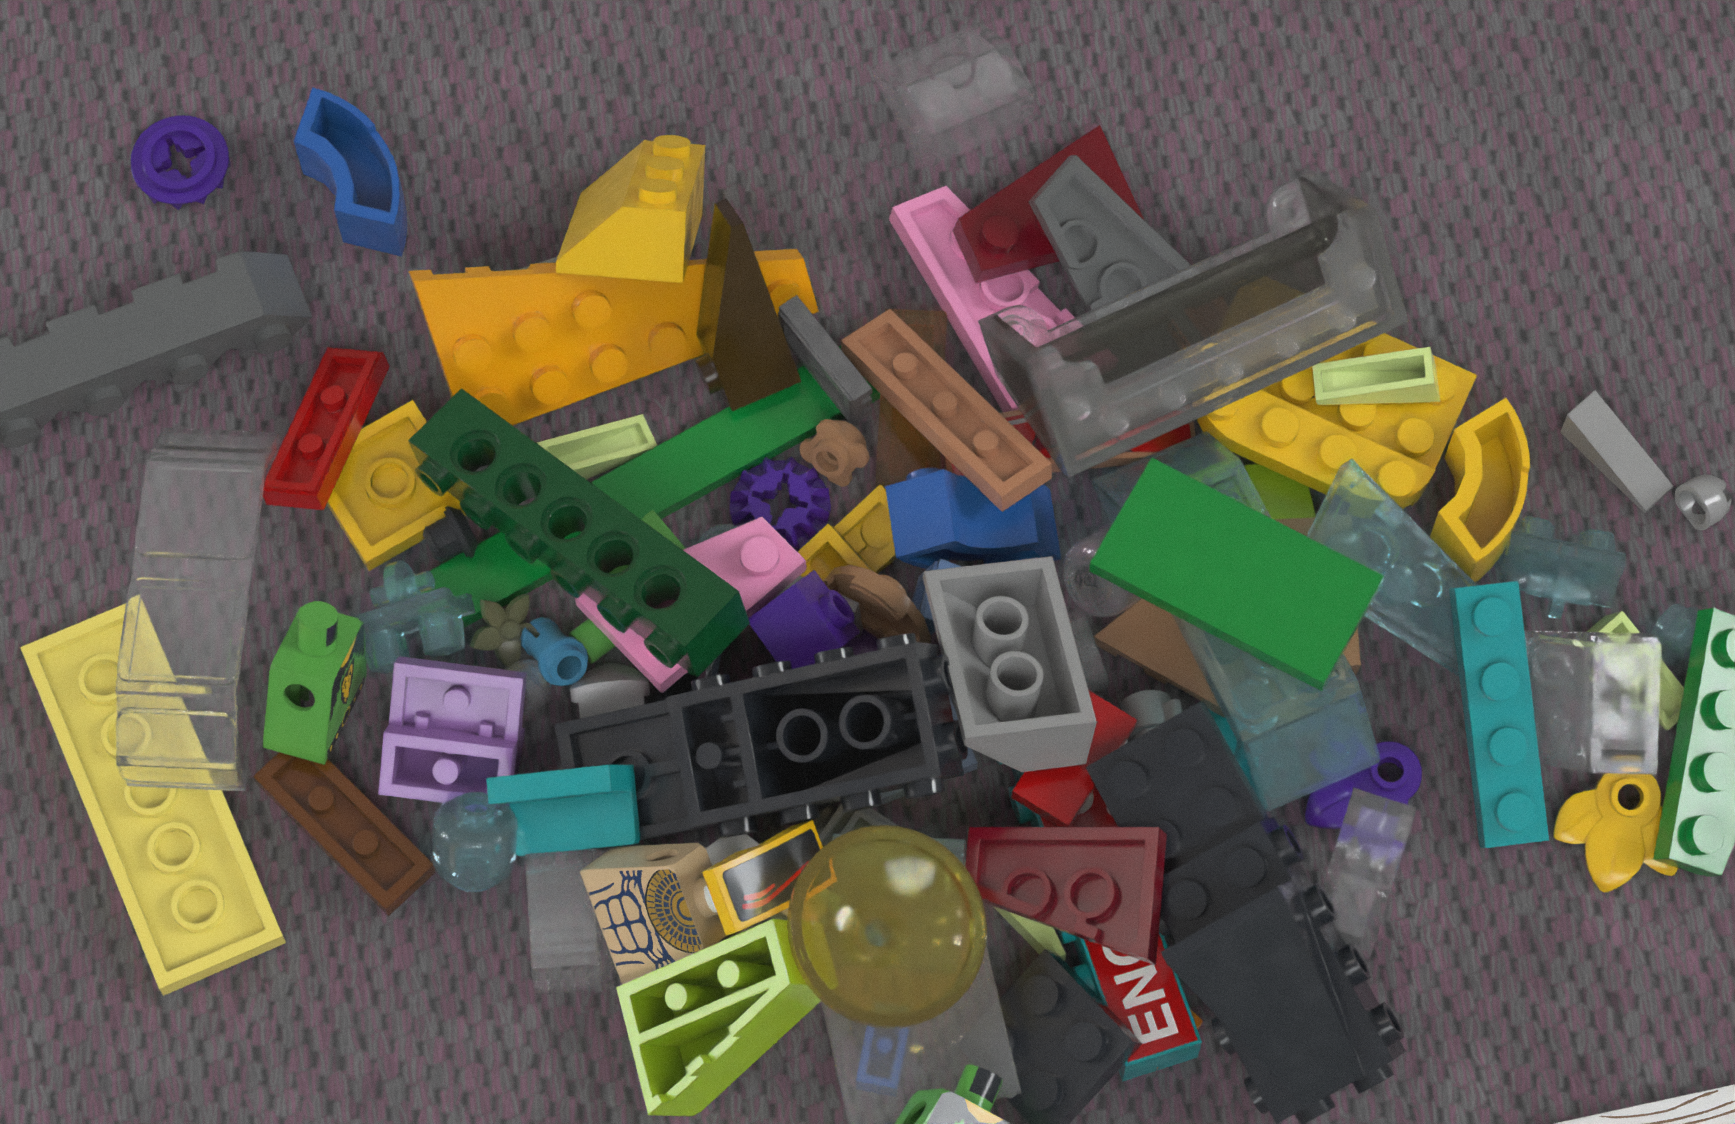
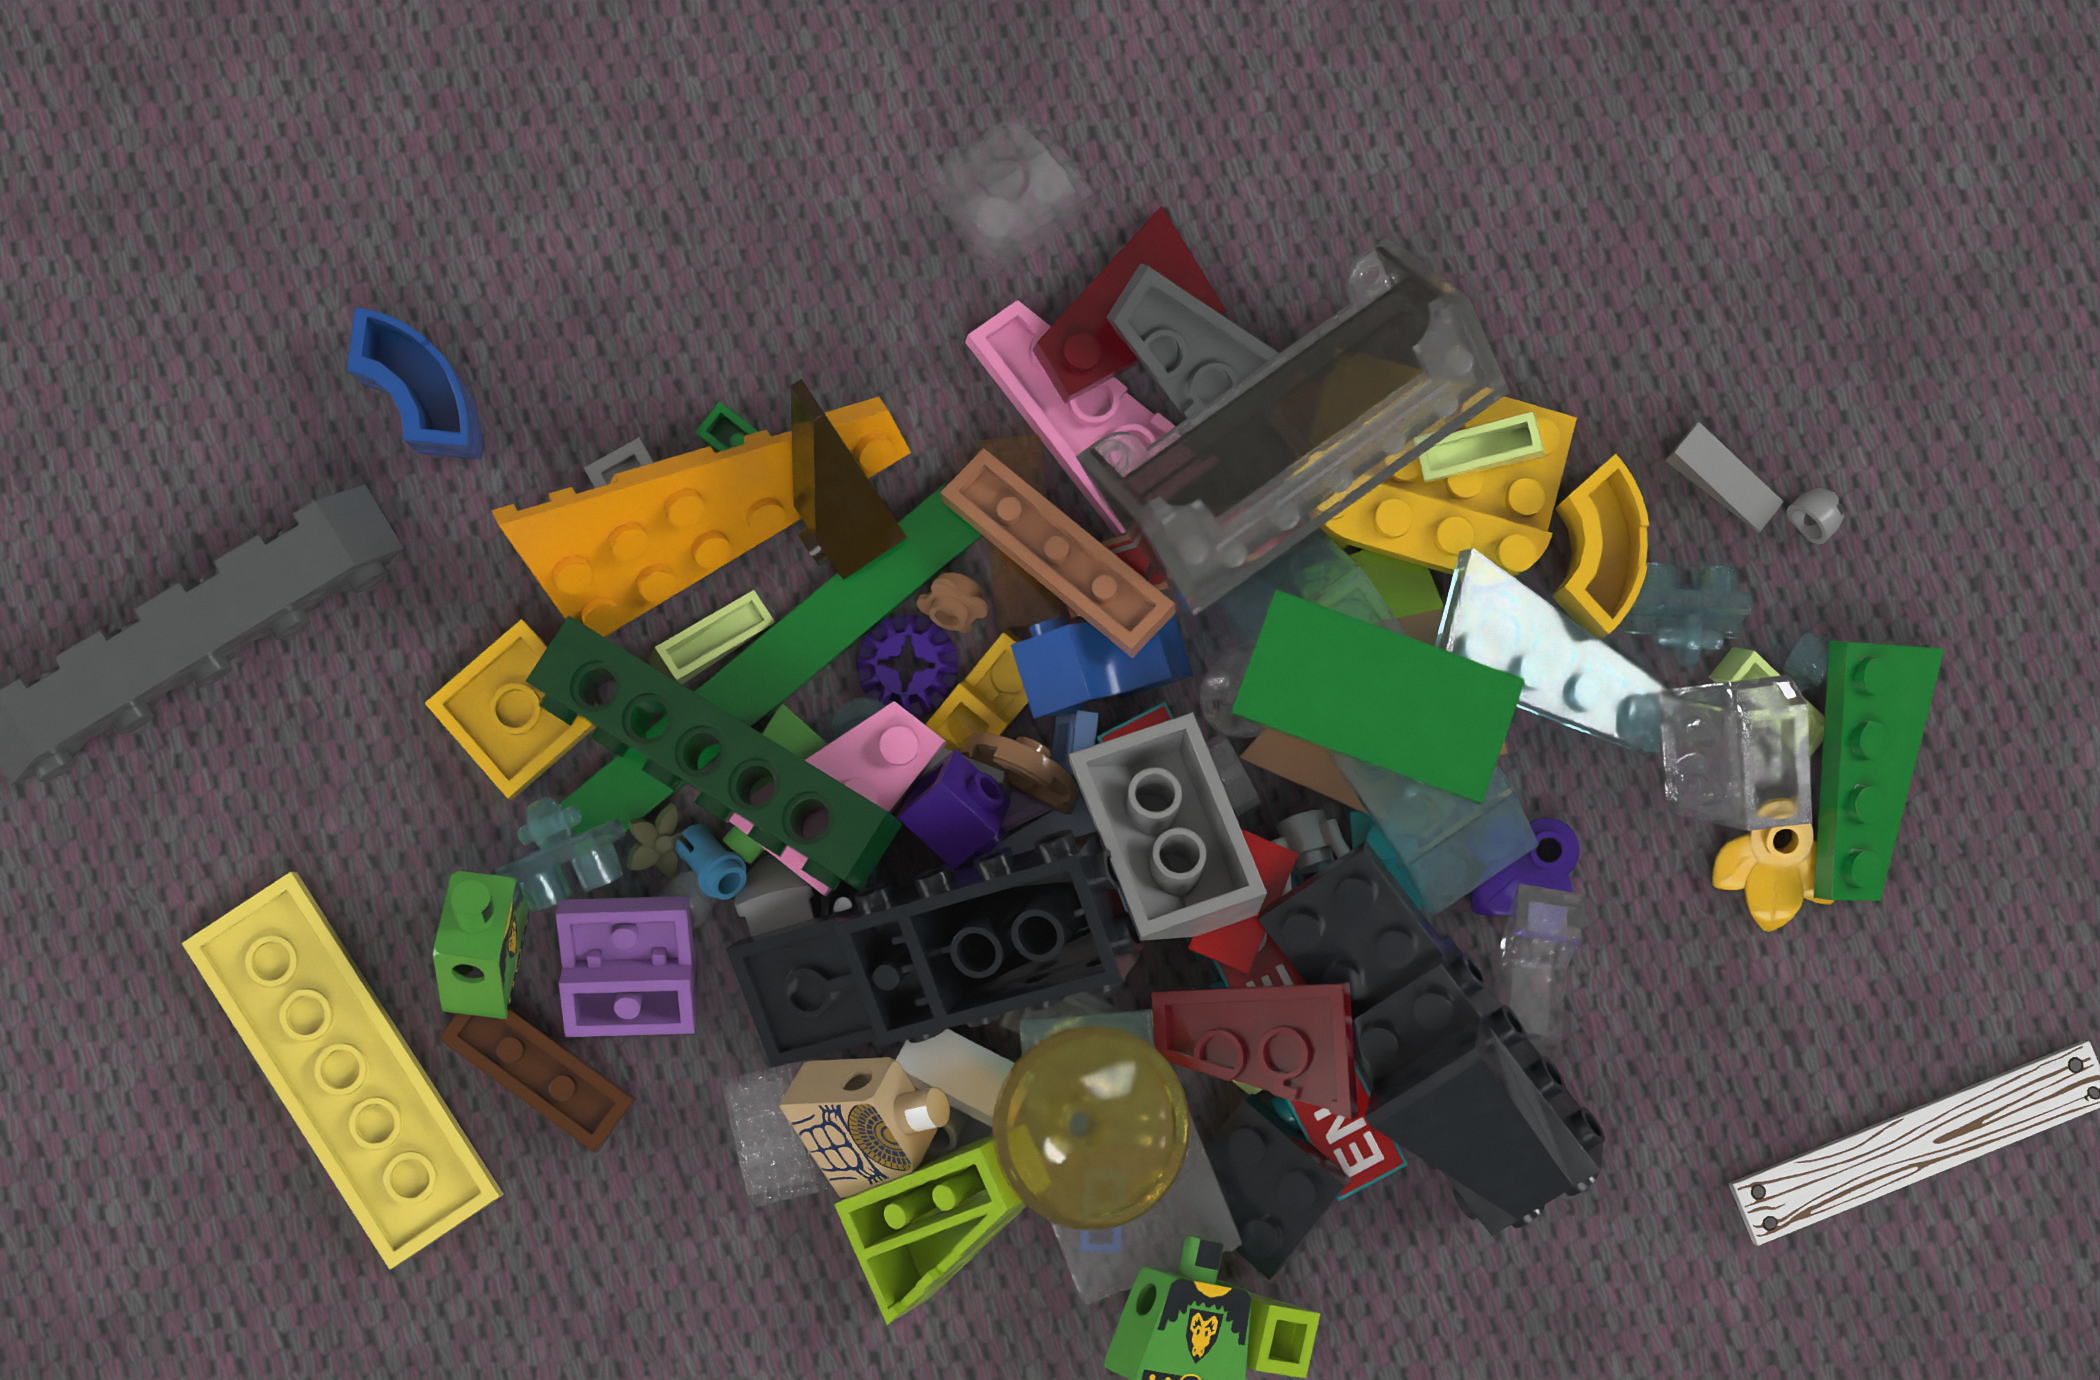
camera: 10 degrees left, 15 degrees up
(190, 137) = (208, 392): dark purple gear -> none
(190, 609) = (338, 879): clear windscreen -> none
(325, 428) = (439, 665): red tile -> none
(450, 536) = (586, 759): black piece -> none
(474, 842) = (668, 1073): clear light blue head -> none
(571, 808) = (755, 1031): teal panel -> none
(639, 215) = (712, 396): yellow slope -> none
(761, 878) = (961, 1097): slope -> none
(825, 361) = (927, 515): flat silver tile -> none
(1499, 714) = (1648, 779): teal plate -> none

